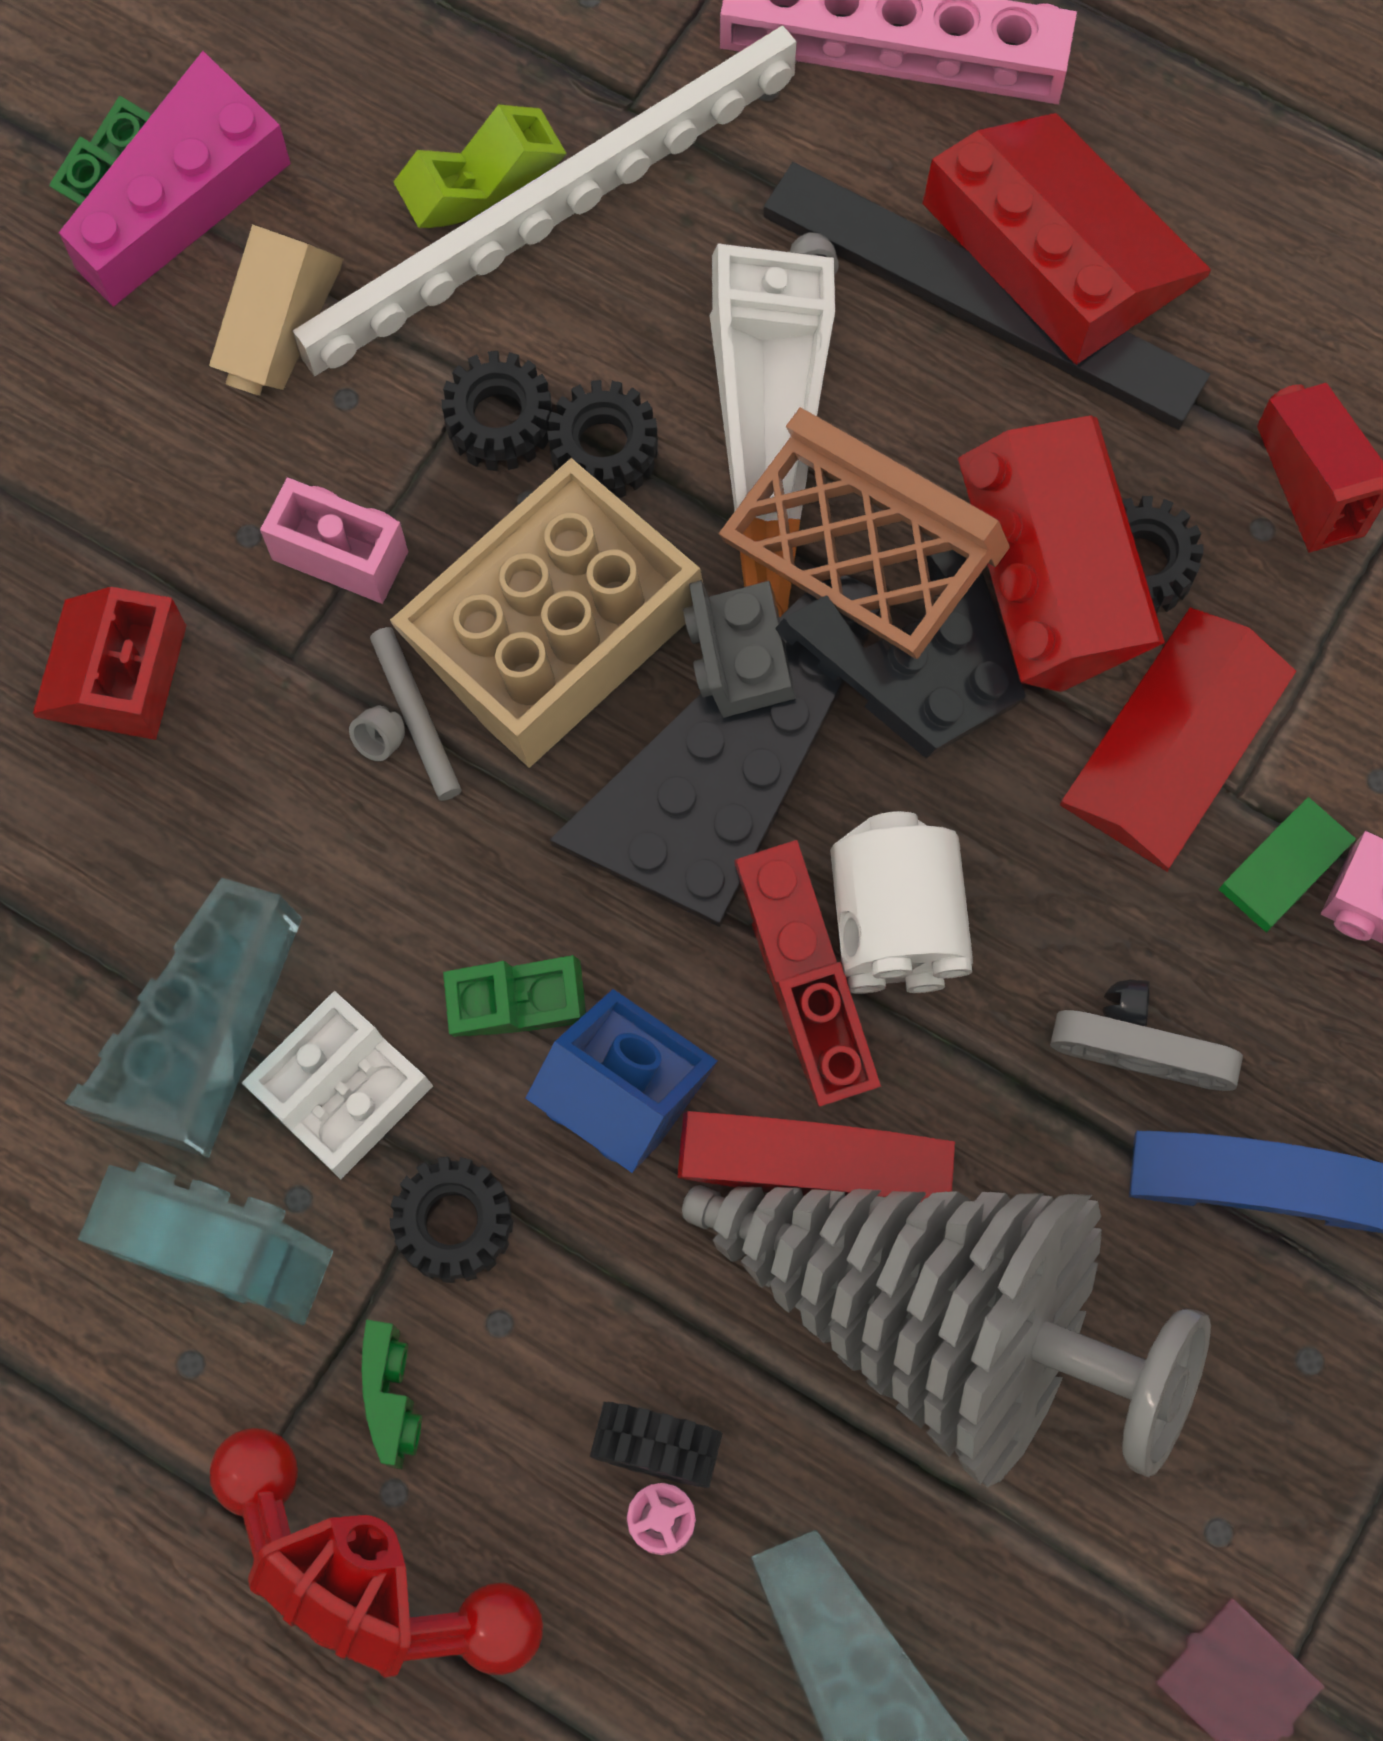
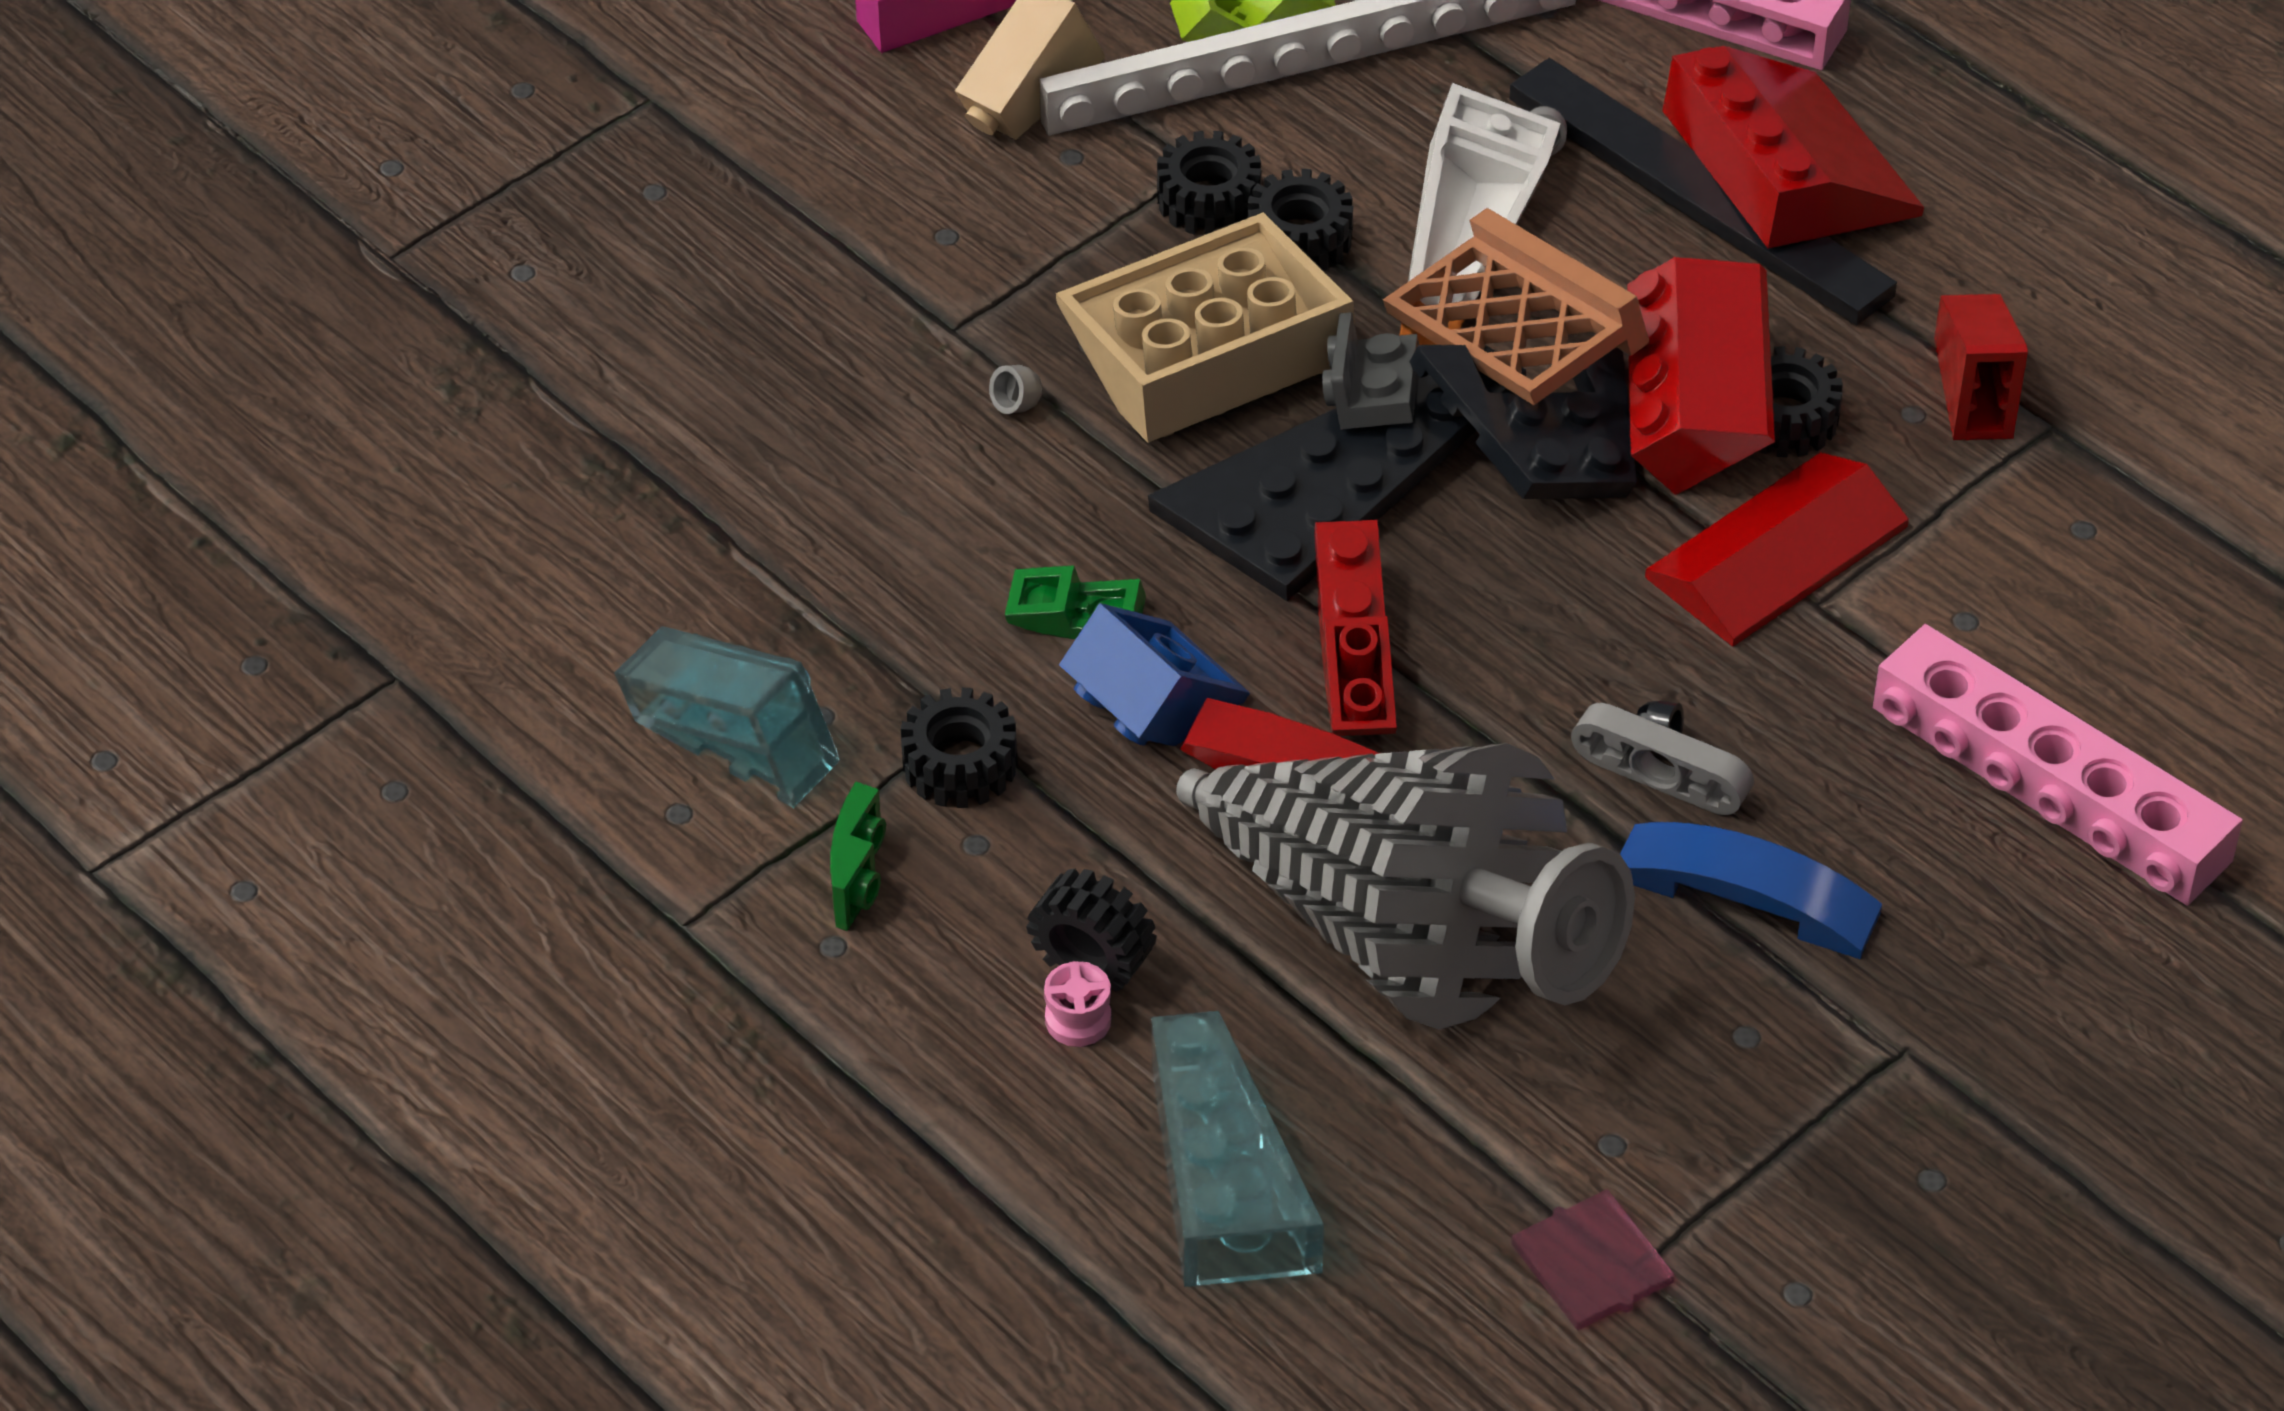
camera: 15 degrees right, 25 degrees down
(112, 662) = (795, 286): red slope -> none
(195, 1024) = (774, 549): clear light blue wedge -> none
(335, 539) = (1025, 235): bright pink brick -> none
(337, 1084) = (888, 635): white slope -> none
(349, 1577) = (764, 958): red piece -> none
(415, 714) = (1055, 387): light grey bar -> none
(901, 905) = (1459, 592): white cylinder -> none
(1287, 864) = (1842, 652): green slope -> none

